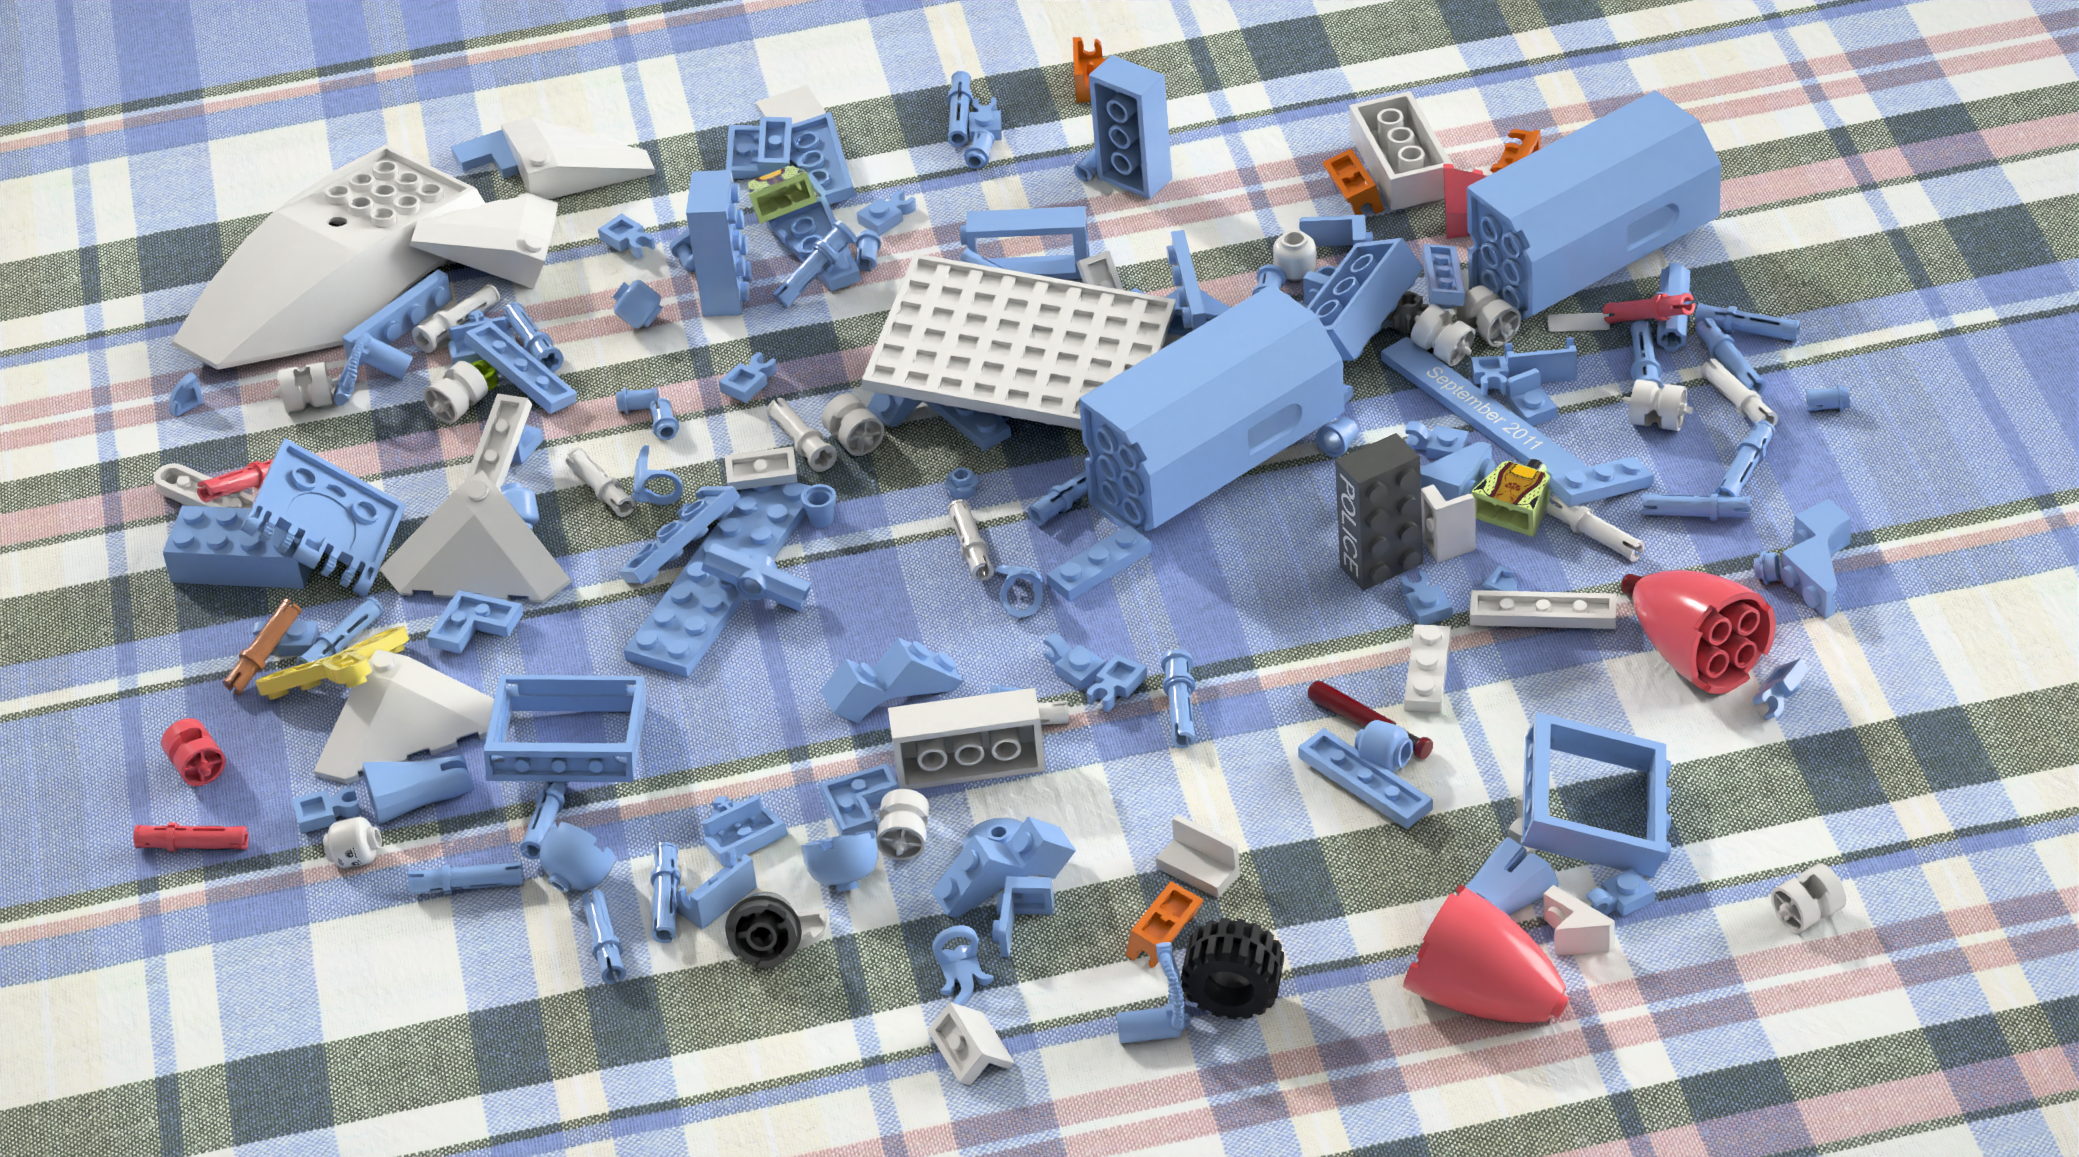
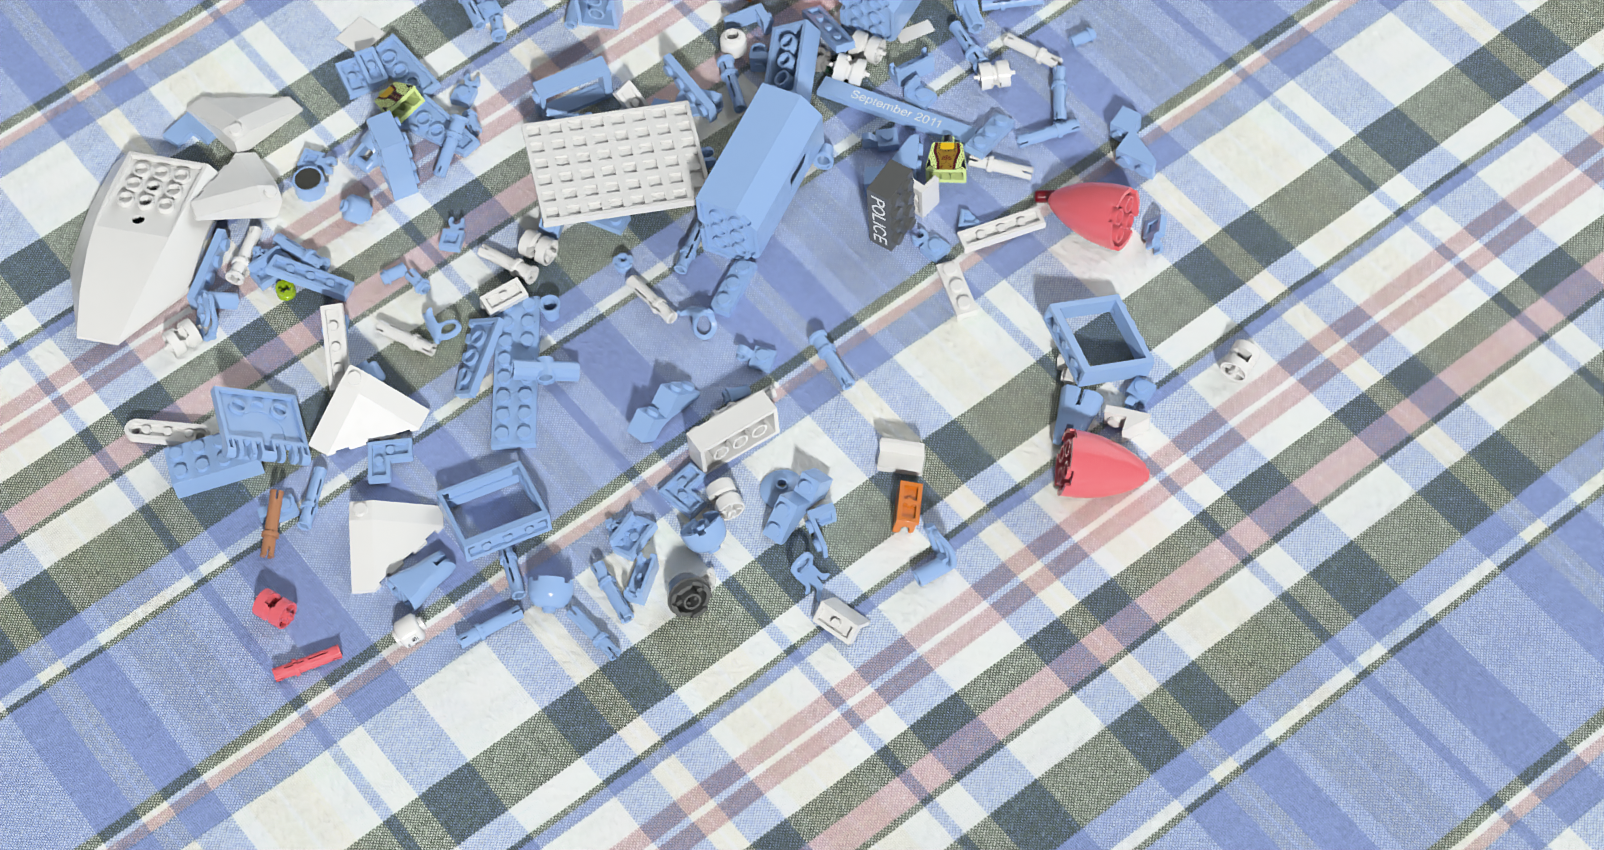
camera: 25 degrees left, 15 degrees up
(185, 395) = (106, 369): light blue tile -> none
(233, 481) = (189, 411): coral pin -> none
(320, 809) = (375, 616): light blue plate -> none
(345, 667) = (333, 519): light yellow piece -> none
(454, 393) = (279, 309): white wheel -> none
(599, 258) = (309, 184): none -> piece
(1116, 678) = (790, 360): light blue plate -> none
(1232, 968) = (967, 521): black tyre -> none
(1351, 709) = (934, 332): dark red piece -> none
(1365, 779) = (963, 372): light blue plate -> none
(1384, 745) = (964, 350): light blue head -> none
(1490, 373) = (888, 83): light blue plate -> none
(1659, 307) = (965, 11): coral pin -> none
(1723, 349) = (1007, 23): light blue pin -> none
(1767, 567) = (1107, 159): light blue plate -> none

